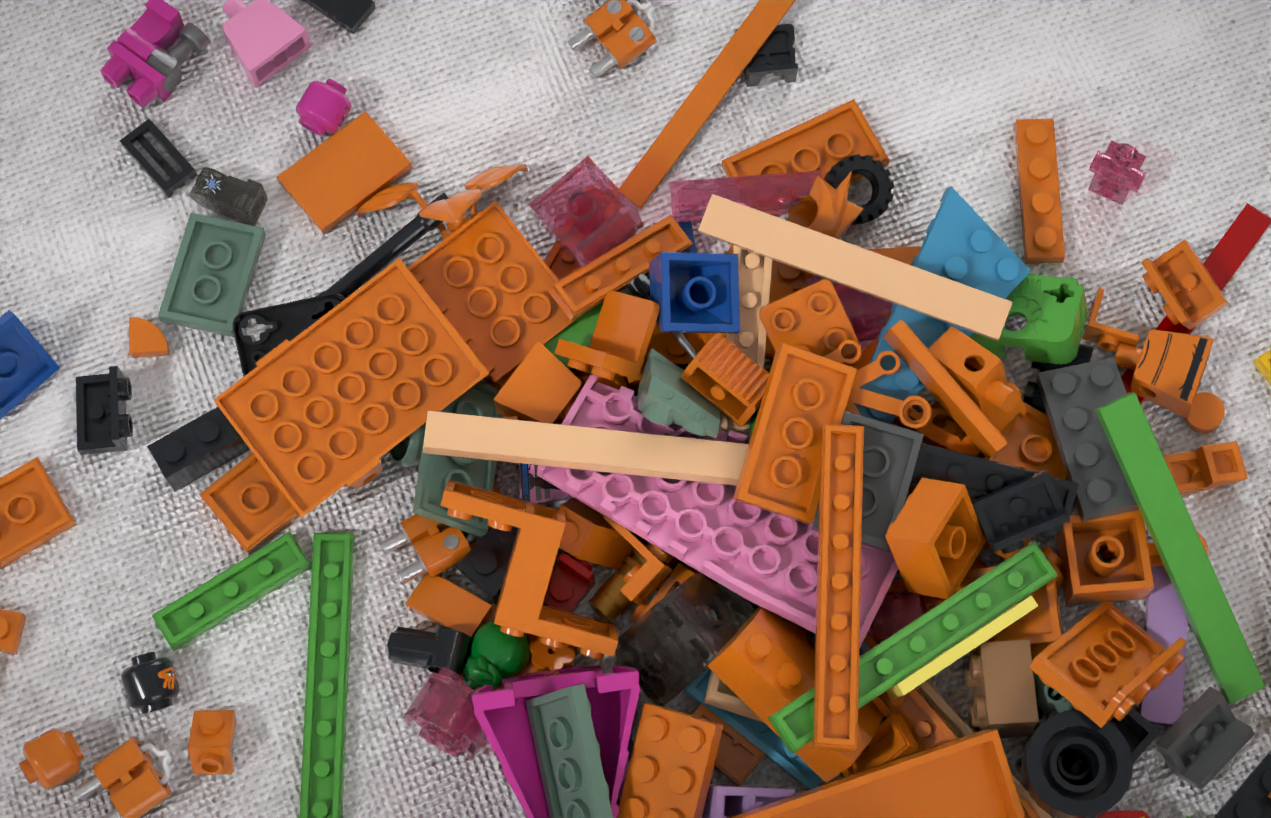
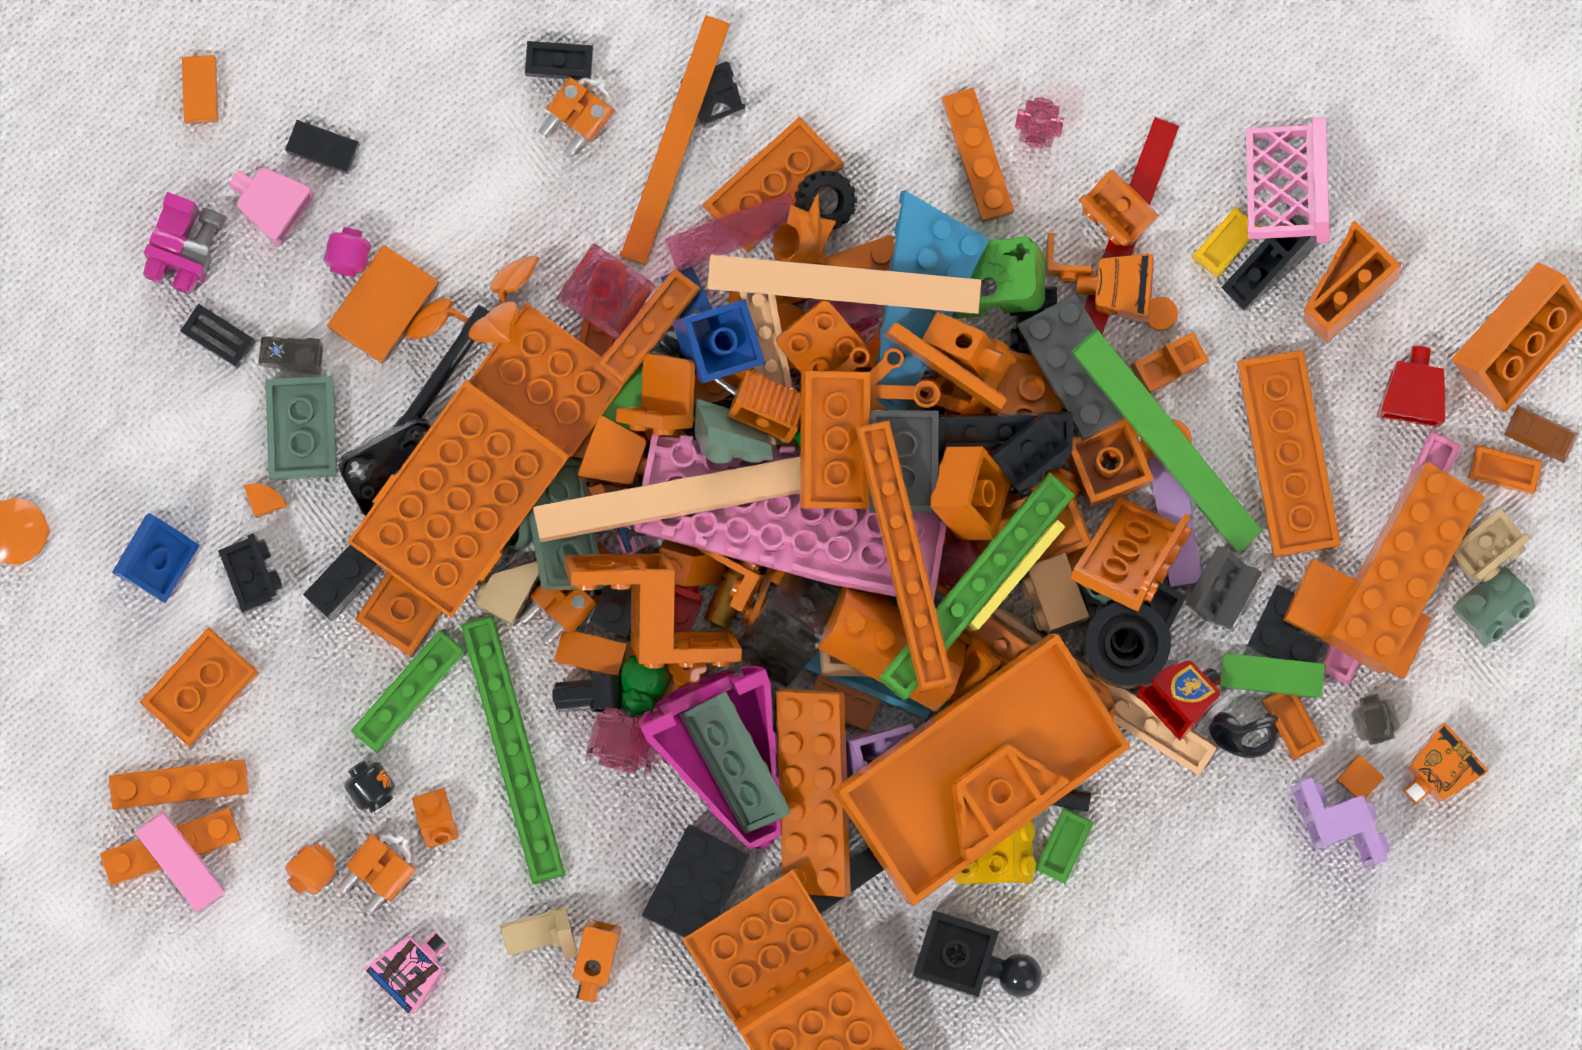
camera: 20 degrees left, 10 degrees up
(376, 511) = (508, 592): none -> tan slope

